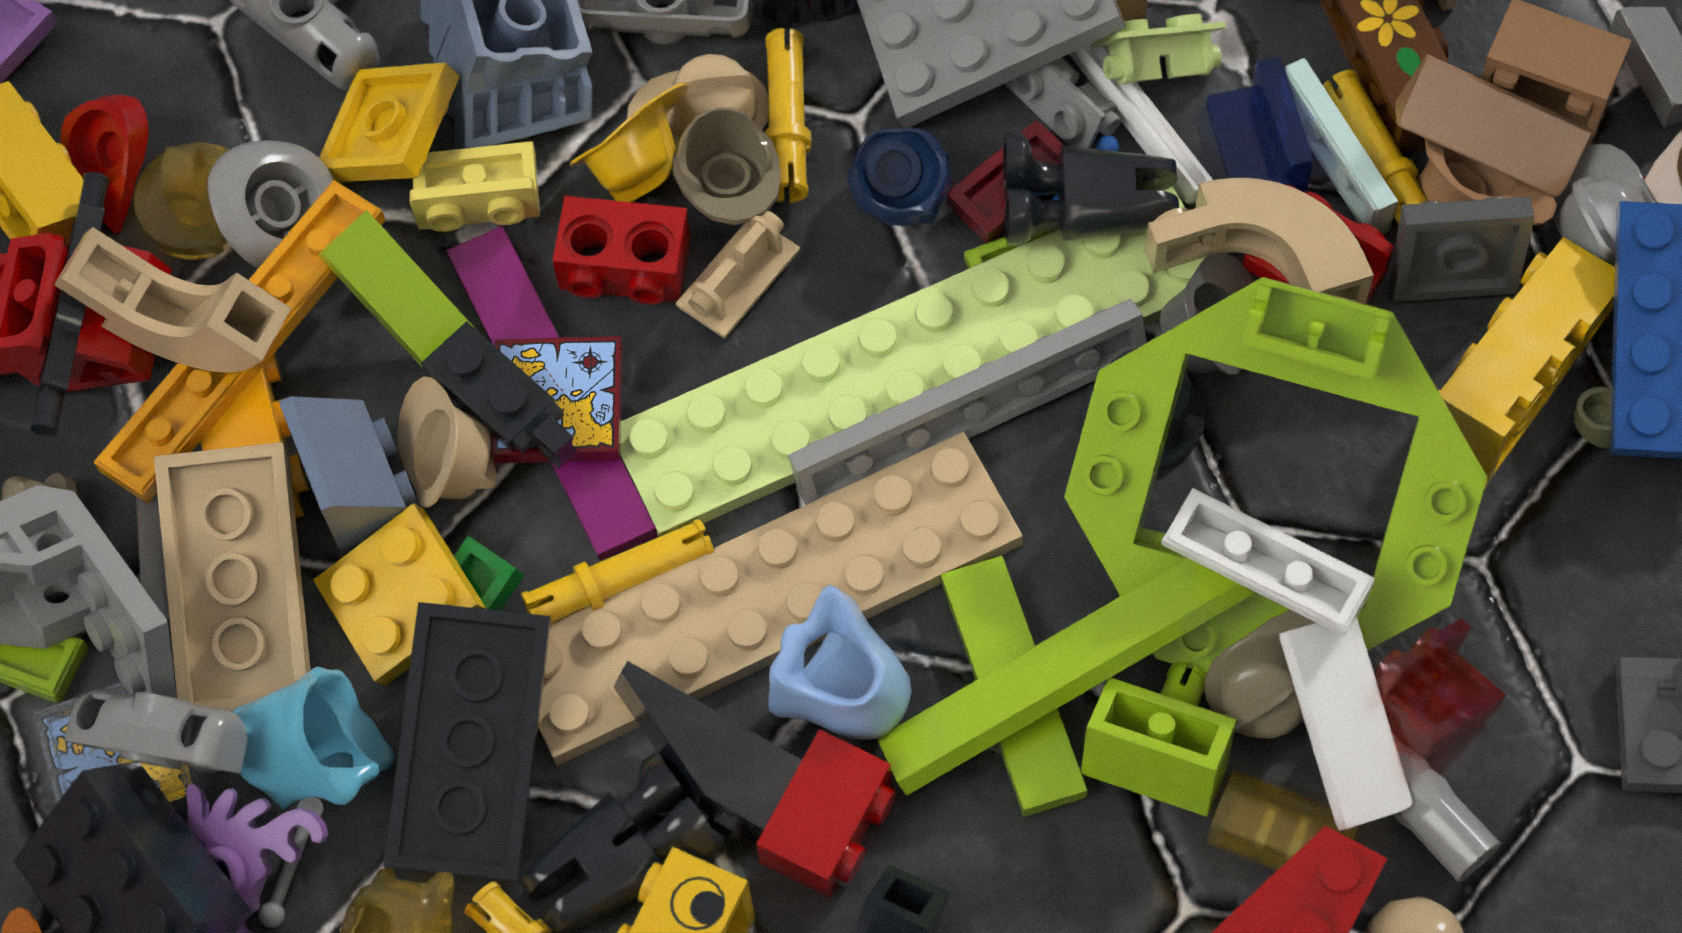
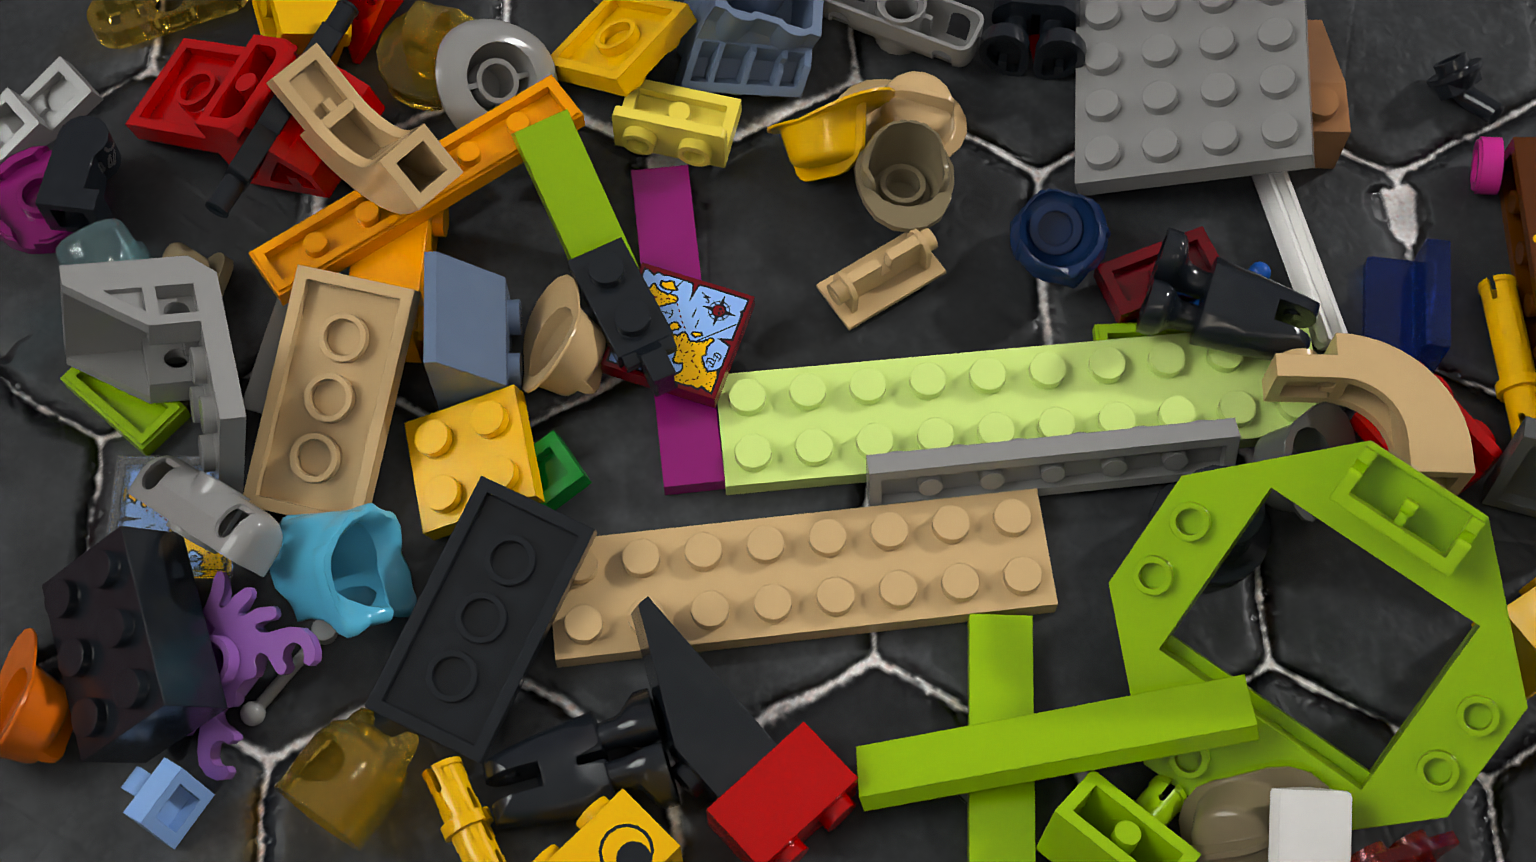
camera: 15 degrees right, 0 degrees up
(618, 573) = (673, 511): yellow pin -> none
(626, 235) = (793, 209): red brick -> none
(786, 111) = (976, 148): yellow pin -> none
(851, 681) = (851, 685): light blue piece -> none
(1068, 110) = (1231, 223): light grey hinge -> none
(1183, 43) = (1362, 201): yellowish green hinge -> none
(1269, 562) = (1285, 715): white slope -> none
(1340, 150) = (1478, 347): light aqua tile -> none

